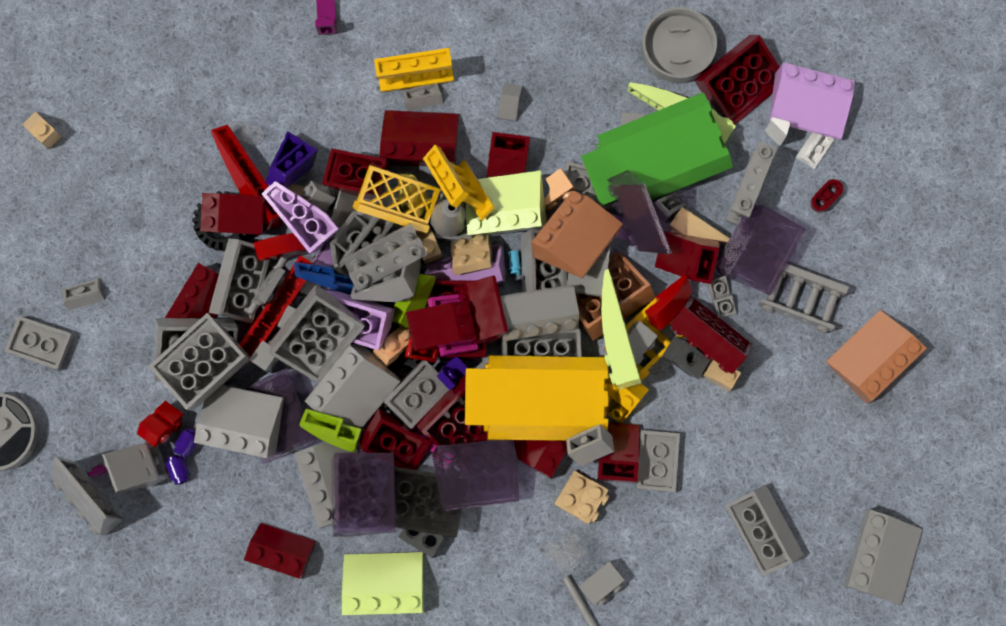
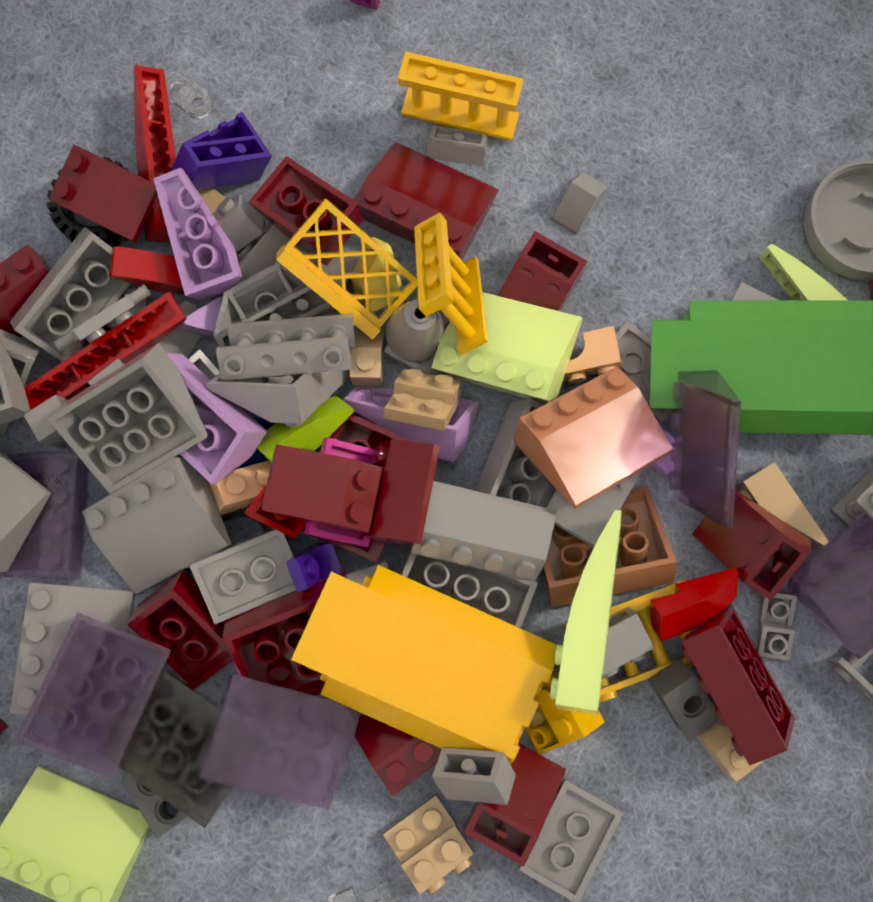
camera: 25 degrees right, 0 degrees up
(324, 276) = (182, 335): blue slope -> none
(331, 430) = (99, 571): lime slope -> none
(514, 263) = (484, 439): medium azure pin -> none
(668, 206) = (755, 452): light grey slope -> none

